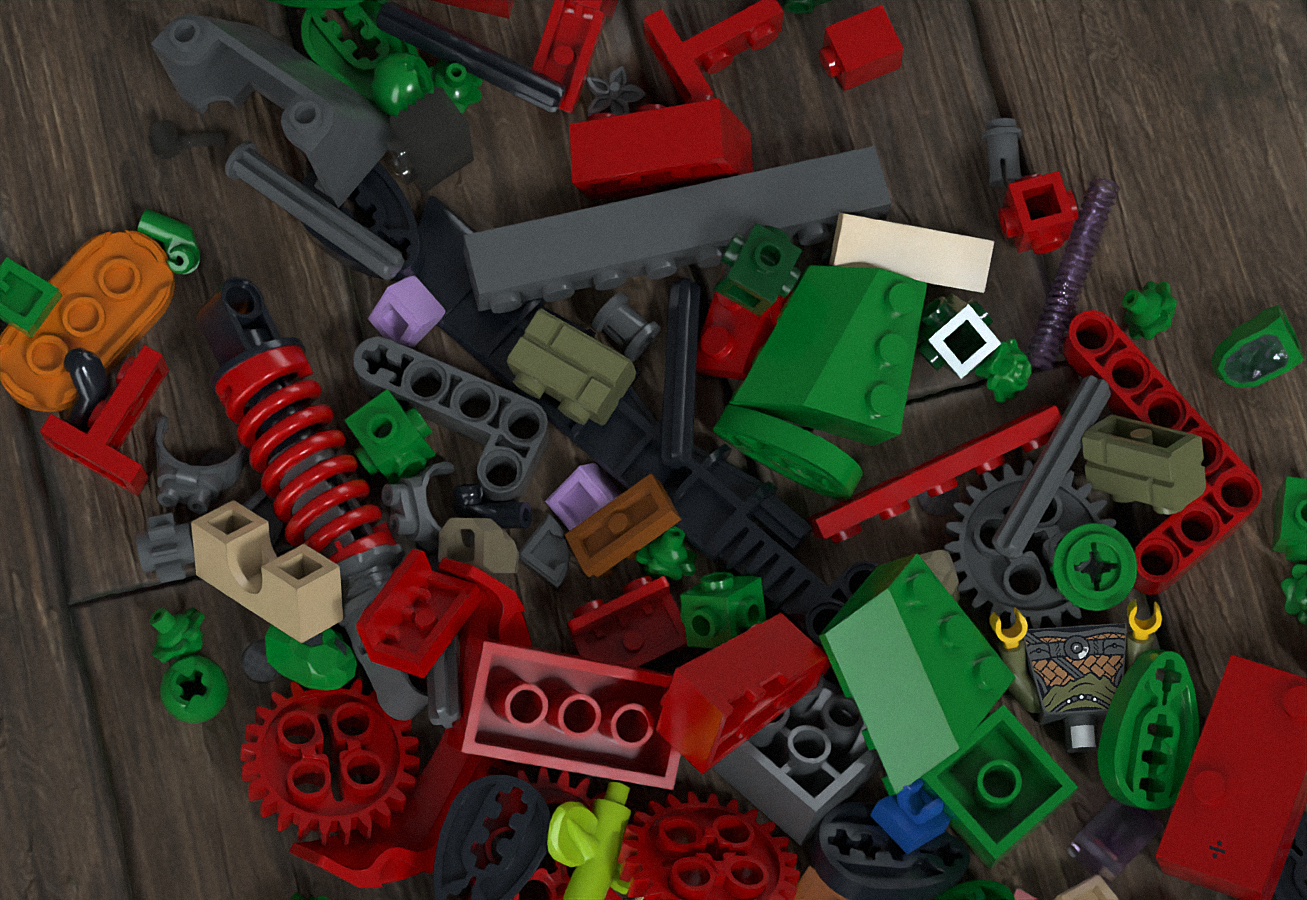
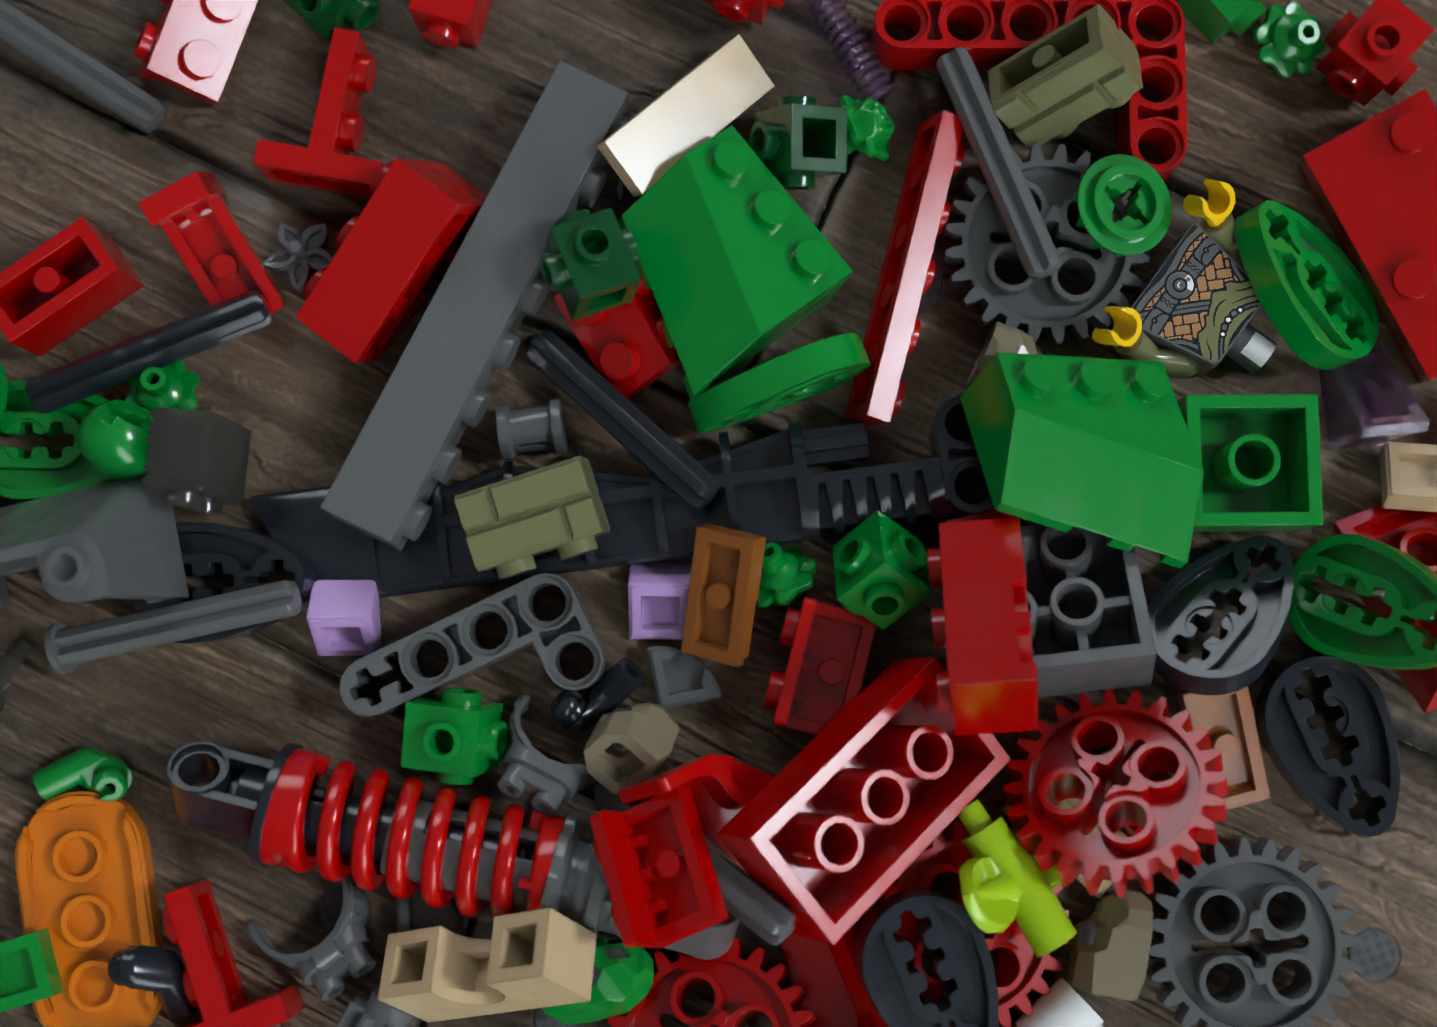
camera: 45 degrees left, 10 degrees up
(911, 817) = (1212, 566): blue tile -> none

